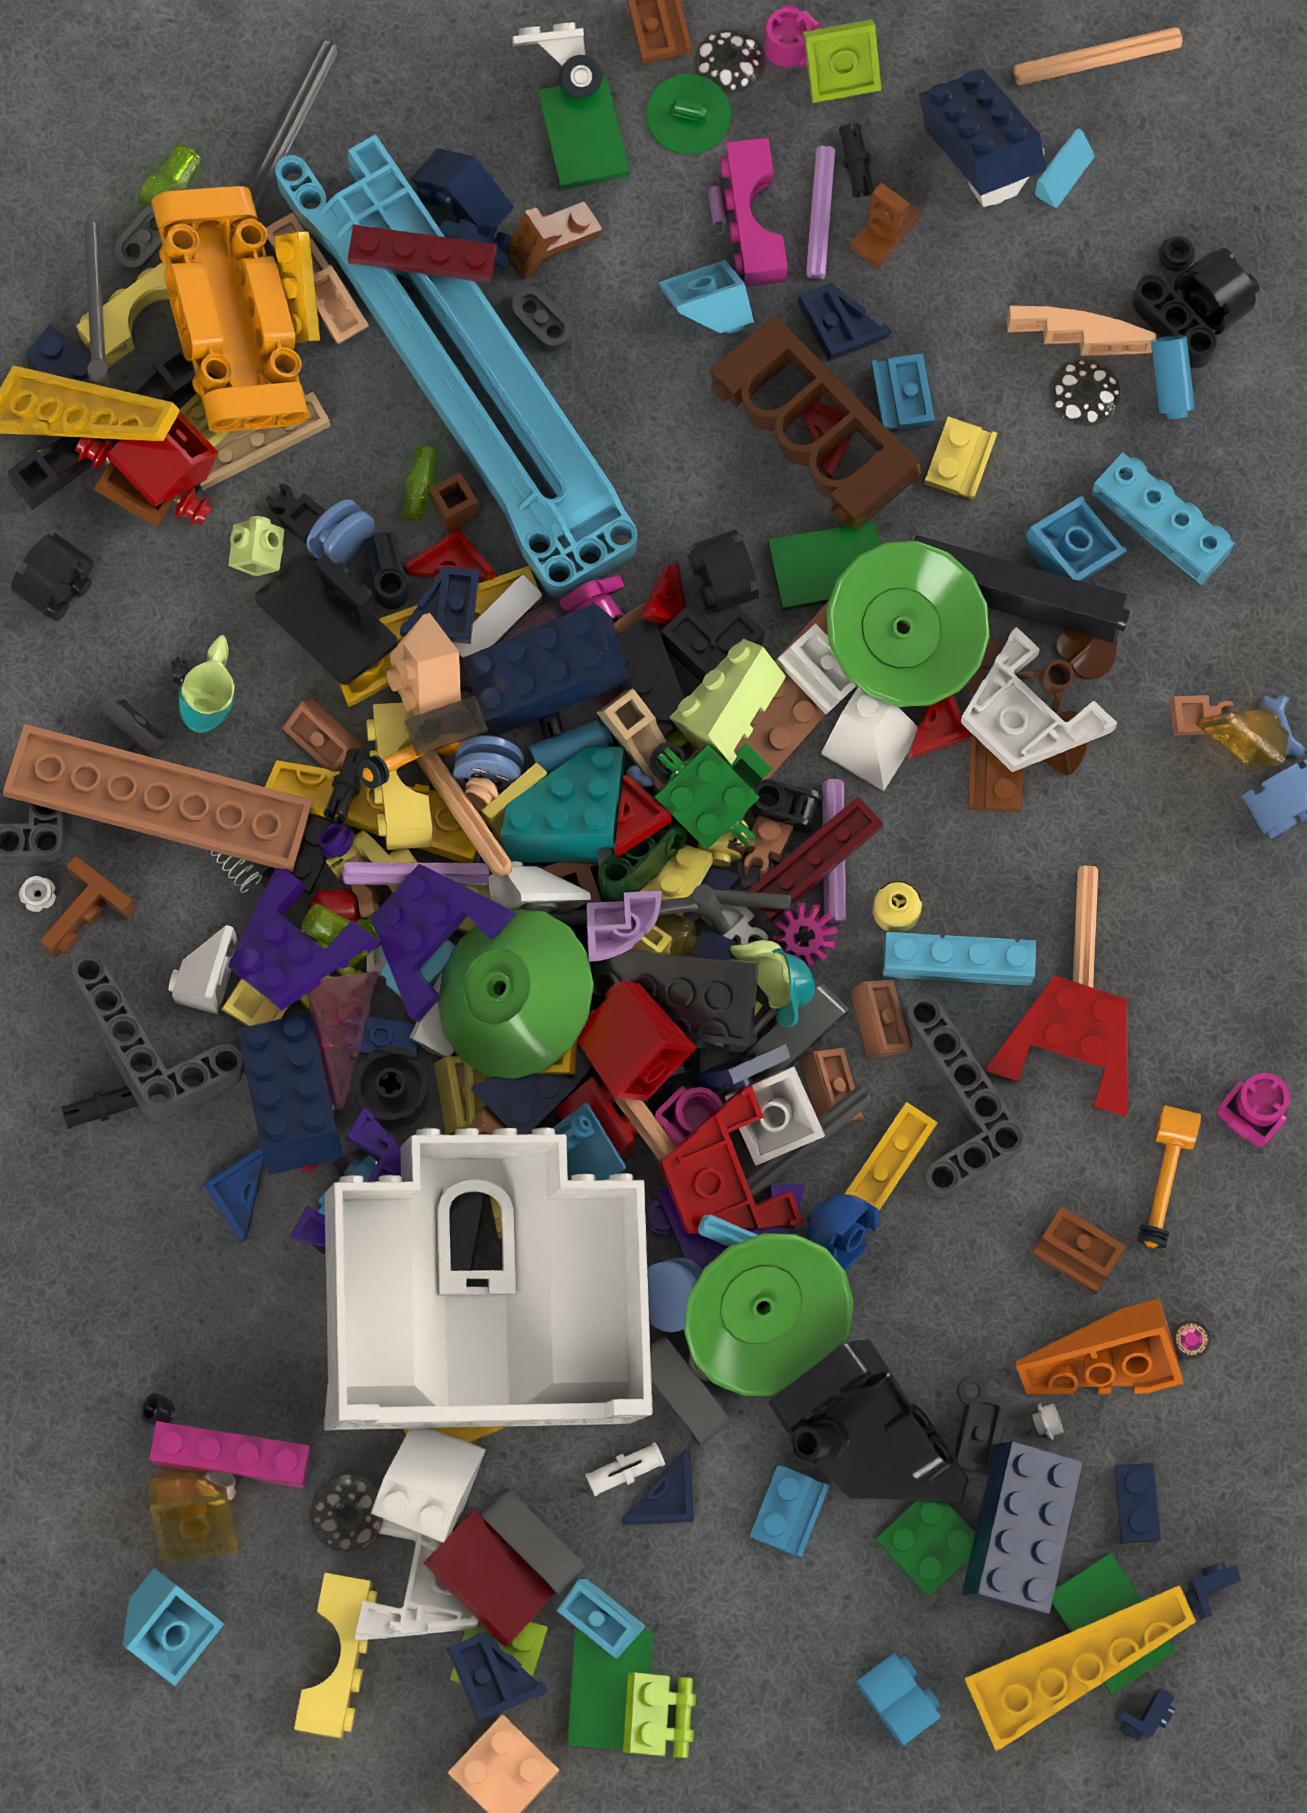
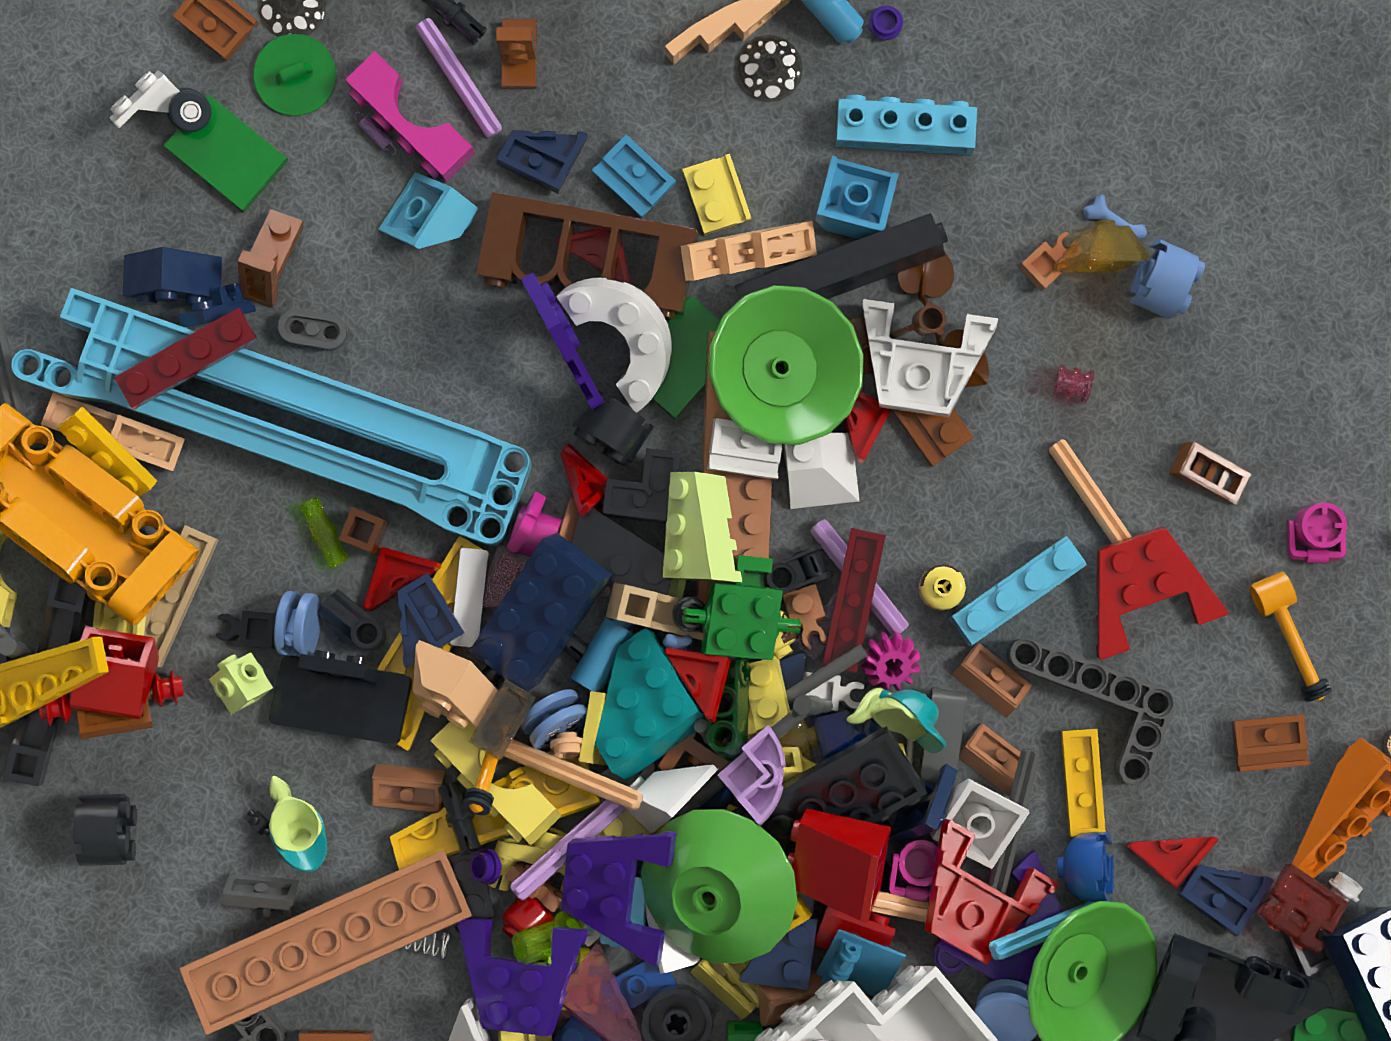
camera: 35 degrees left, 10 degrees up
(740, 459) = (562, 334): none -> dark purple wing
(811, 507) = (637, 320): none -> white brick
(918, 1283) = (1173, 857): none -> red tile
(937, 1346) = (1225, 895): none -> dark blue wing
(949, 515) = (748, 250): none -> light nougat slope
(1007, 1399) = (1307, 898): none -> clear red plate
(1142, 828) = (1073, 383): none -> clear pink bush
(1191, 996) = (1184, 460): none -> dark orange slope
(1212, 426) = (885, 22): none -> dark purple plate

